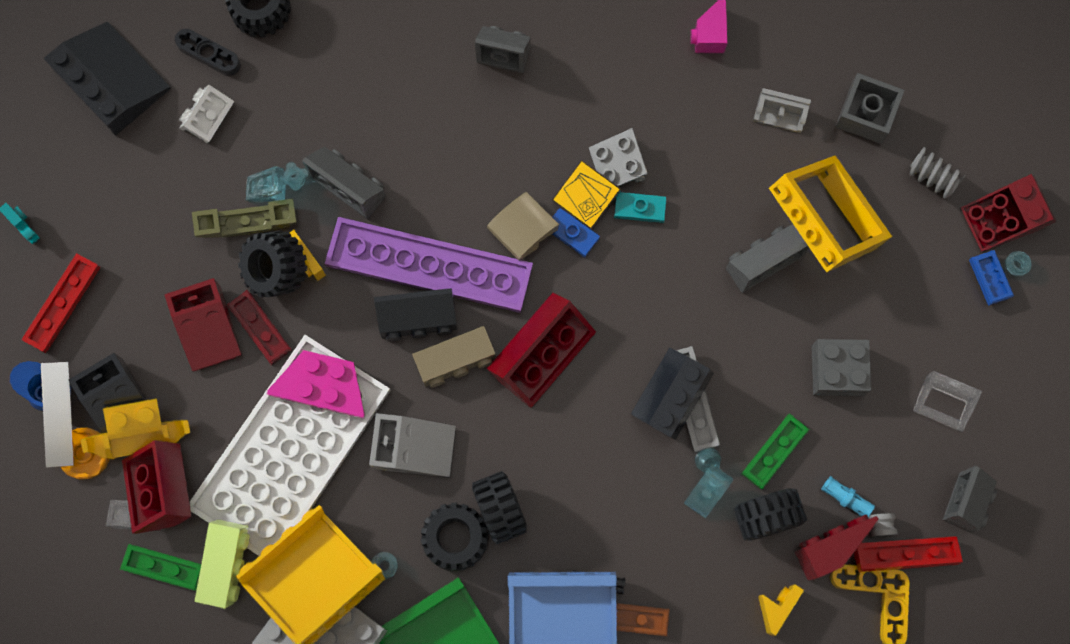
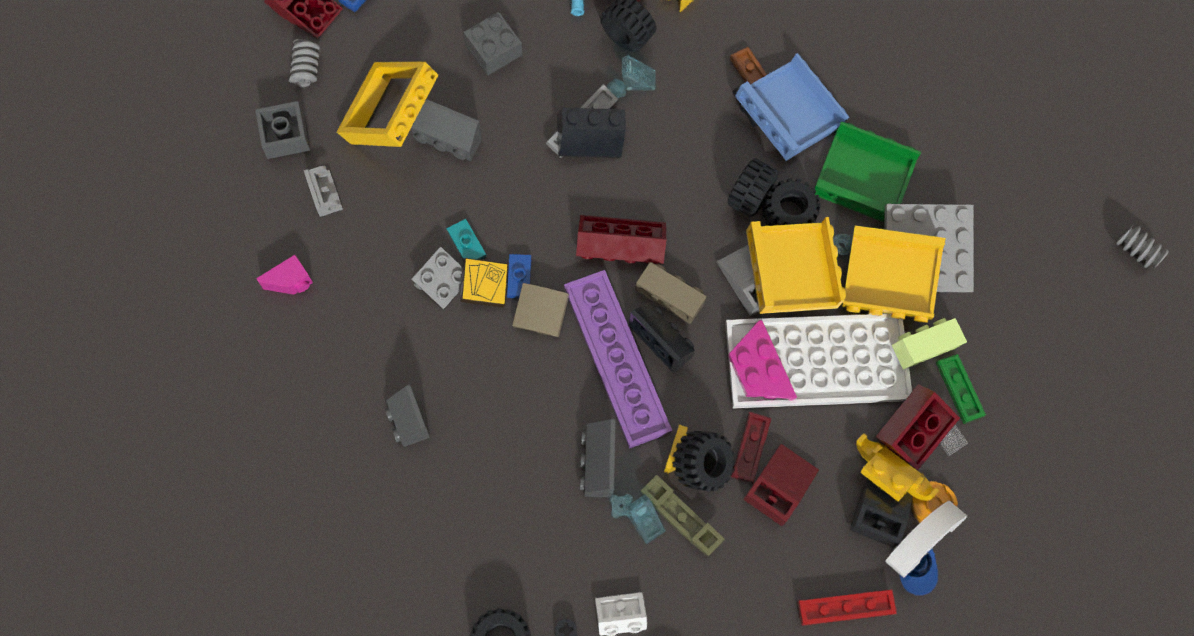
camera: 130 degrees left, 5 degrees down
(386, 481) = (795, 267): none -> yellow panel
(775, 451) = (578, 54): green tile -> none

